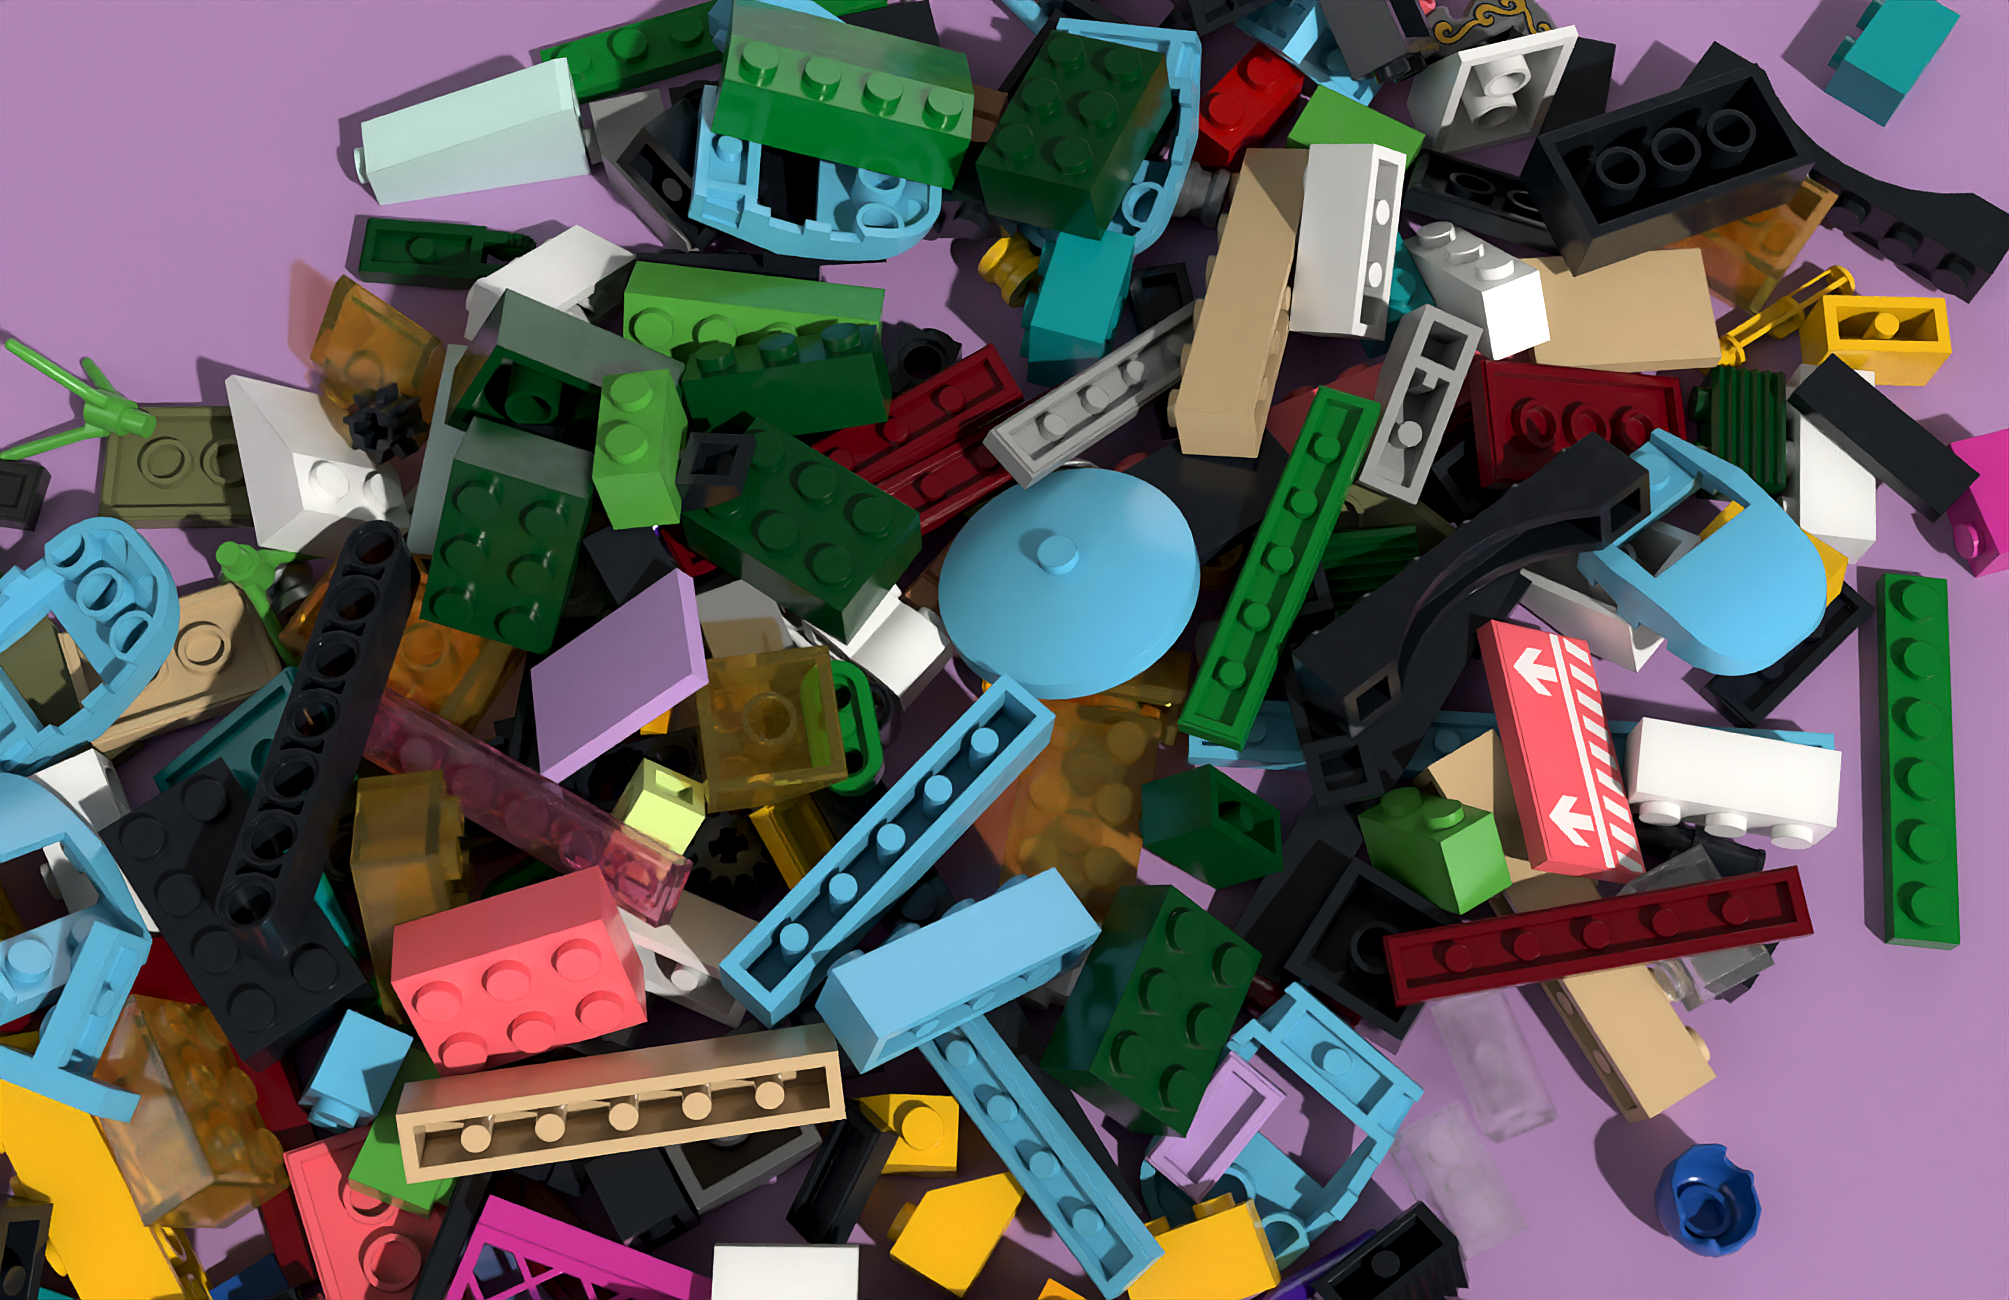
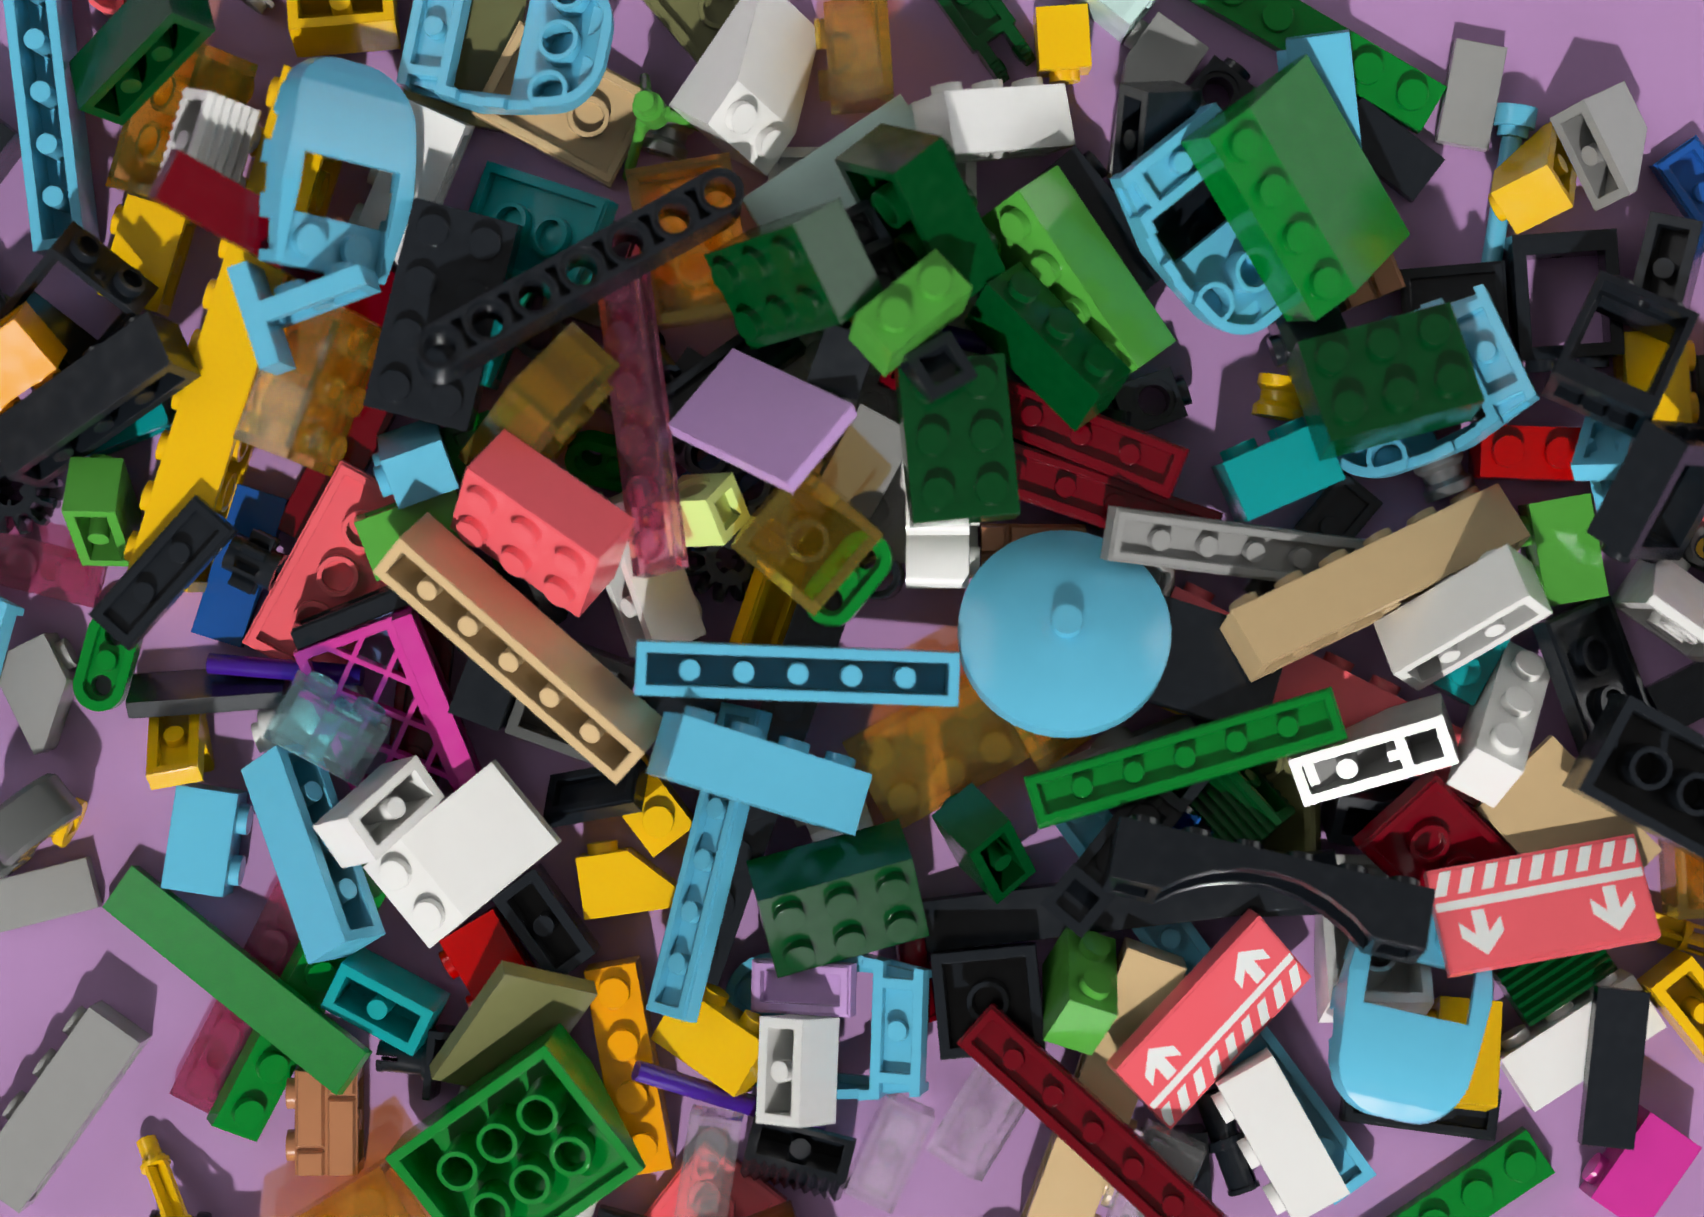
camera: 55 degrees right, 20 degrees up
(386, 423) = (815, 103): black gear -> none
(538, 200) = (1062, 42): none -> yellow brick
(1298, 1192) = (797, 1070): none -> white brick
(1681, 365) = (1542, 905): none -> coral tile

